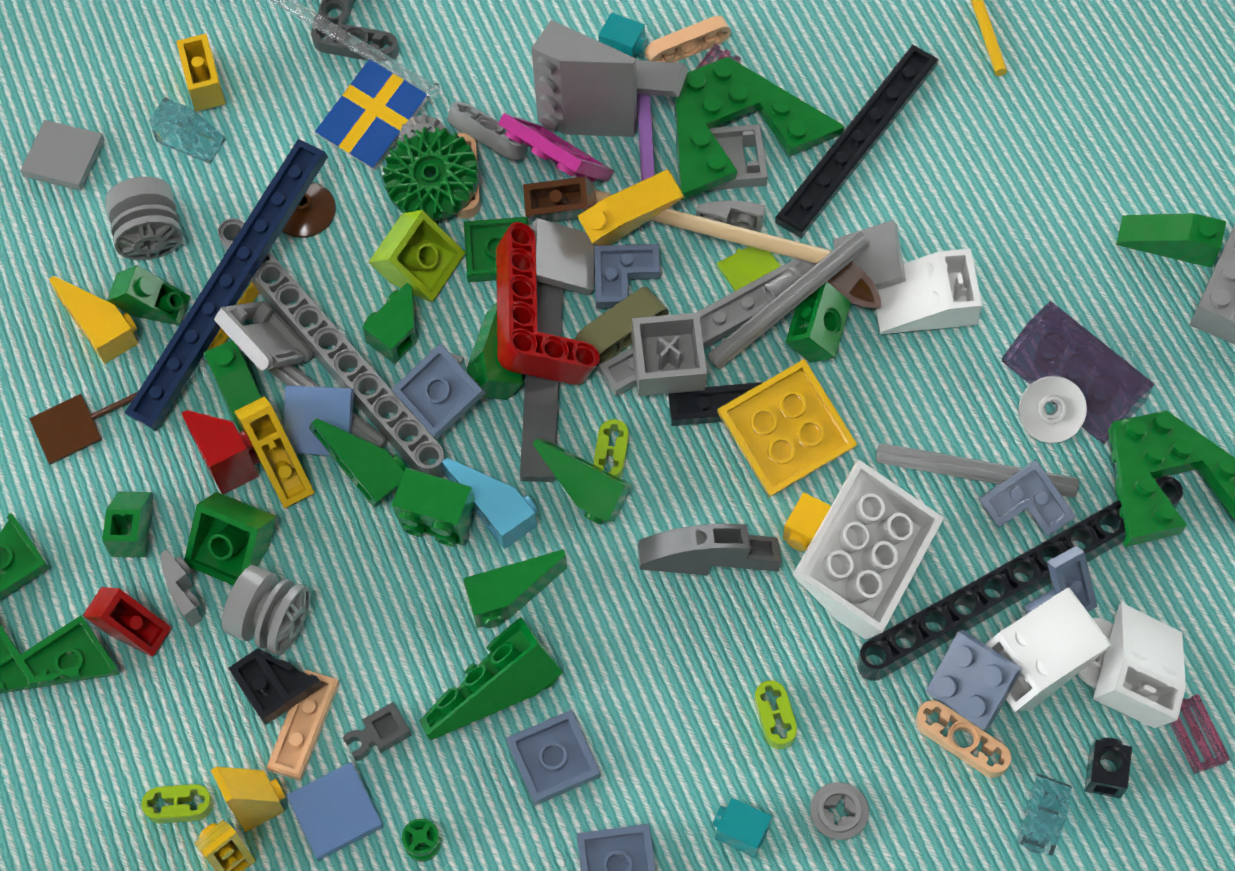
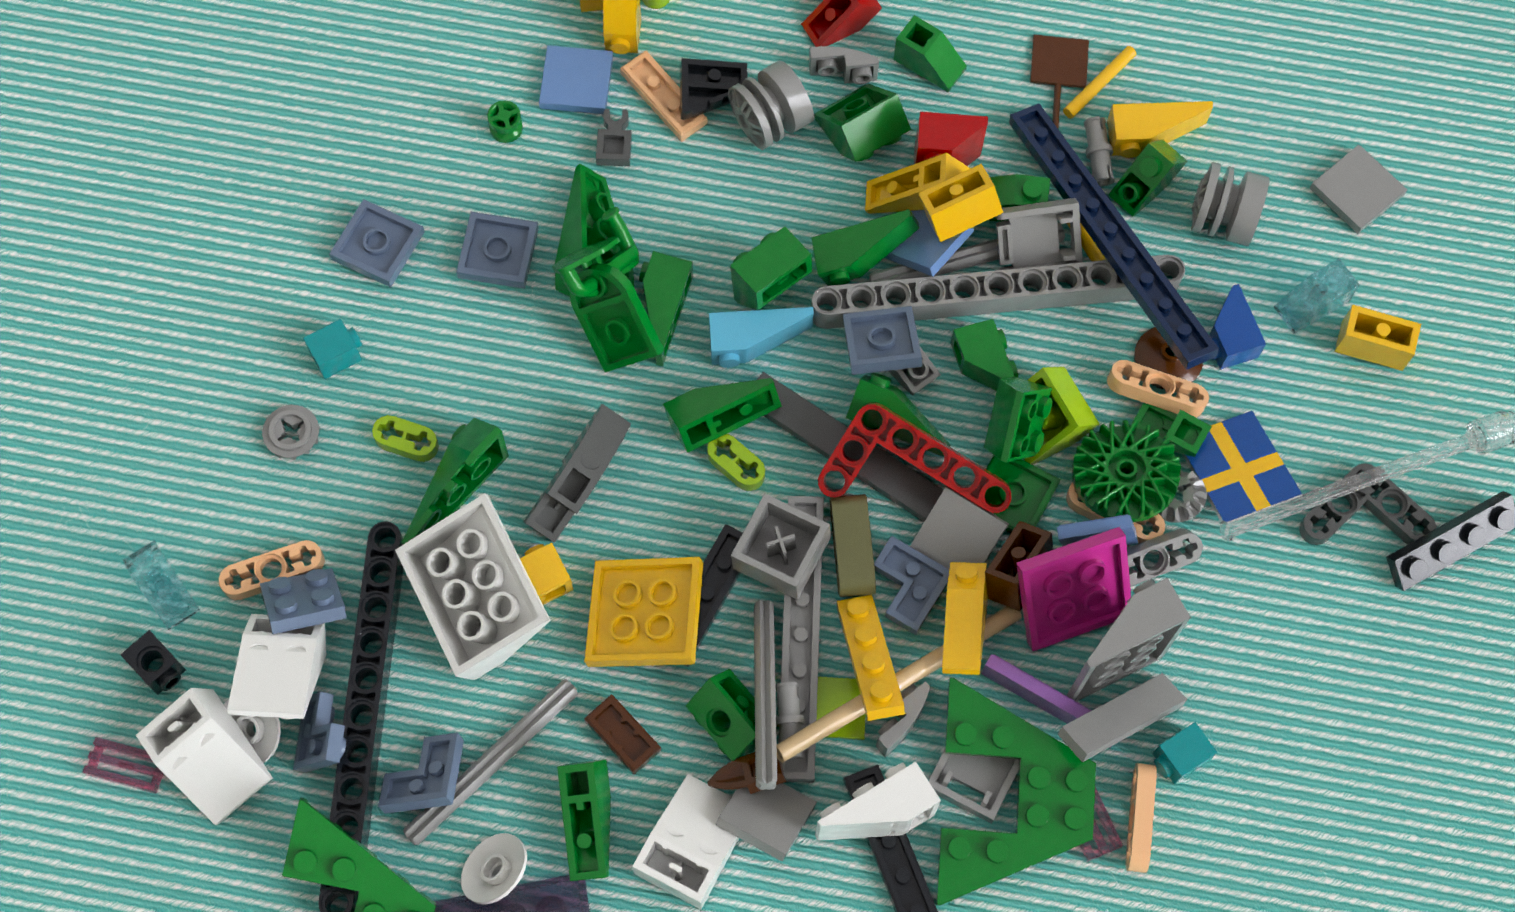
camera: 120 degrees right, 5 degrees up
(69, 385) = (1099, 82): none -> yellow bar
(143, 347) = (1099, 150): none -> light grey pin
(250, 170) = (1236, 331): none -> blue slope
(279, 387) = (961, 202): none -> yellow brick
(350, 202) = (1136, 373): none -> light nougat beam
(367, 165) = (1182, 428): none -> green slope
(445, 256) = (1018, 419): none -> green slope
(501, 158) = (1078, 531): none -> medium blue tile
(556, 610) = (607, 300): none -> green plate
(706, 253) = (870, 658): none -> yellow plate
(764, 641) = (466, 465): none -> green wedge
(815, 177) = (882, 810): none -> white slope
(886, 392) = (622, 734): none -> reddish brown plate
(966, 371) = (586, 817): none -> green slope

